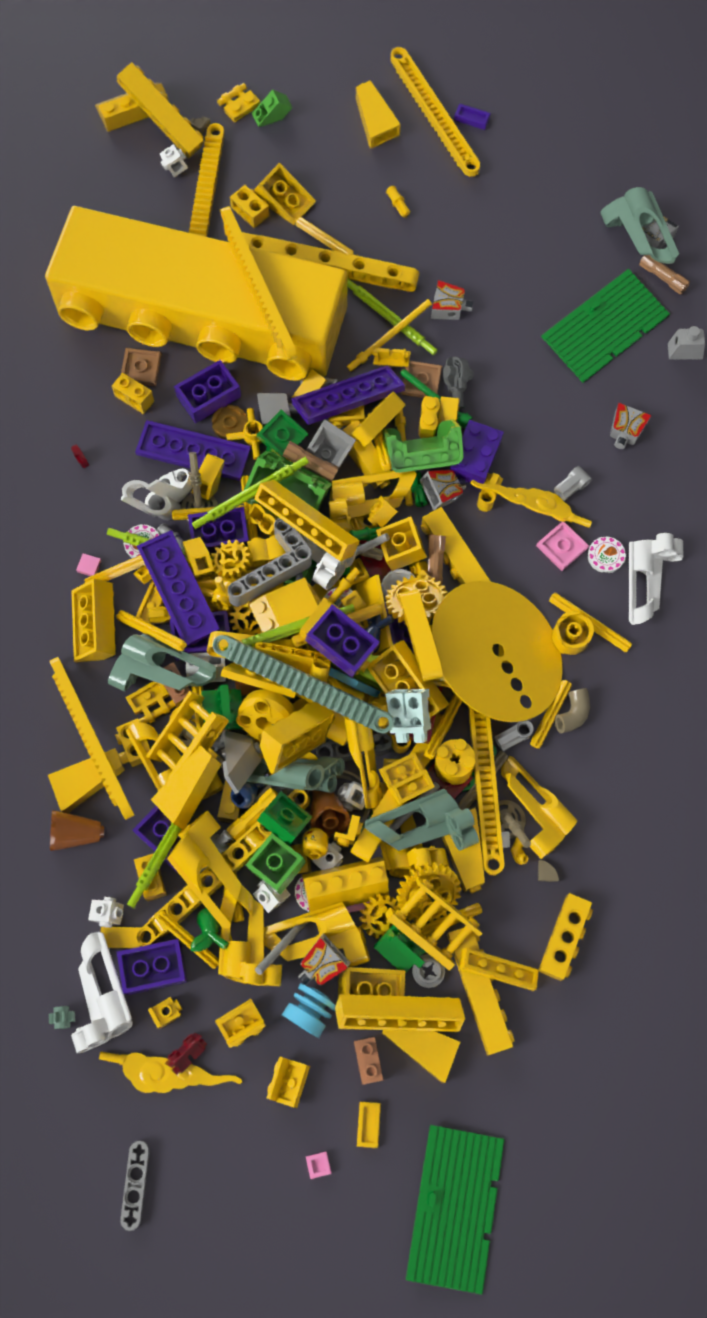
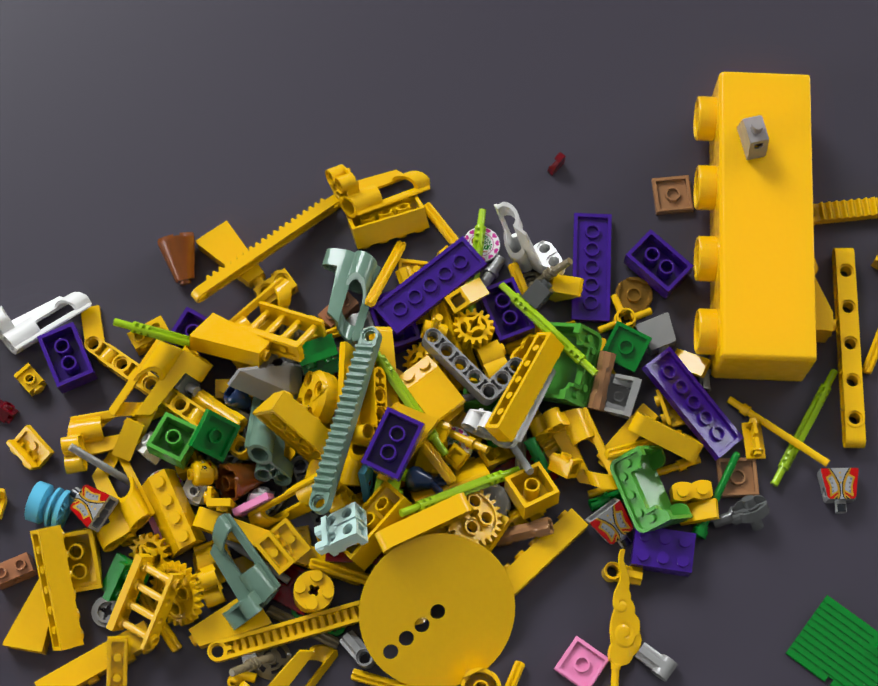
camera: 80 degrees right, 0 degrees up
(59, 638) = (364, 194): none -> yellow panel
(61, 1017) = (11, 292): sand green gear -> none
(88, 565) = (445, 202): bright pink tile -> none
(106, 912) = (110, 305): white brick -> none
(122, 260) = (752, 133): none -> light grey torso
(133, 393) = (637, 194): yellow brick -> none
(147, 697) = (317, 285): yellow plate -> none
(185, 937) = (96, 380): yellow axle -> none
(209, 929) = (103, 399): green piece -> none
(212, 493) = (538, 293): none -> dark grey brick
(257, 284) = (768, 272): yellow gear -> none
(258, 915) = (128, 439): none -> yellow tile
(360, 798) = (243, 509): none -> bright pink tile
(393, 601) = (468, 488): none -> lime axle

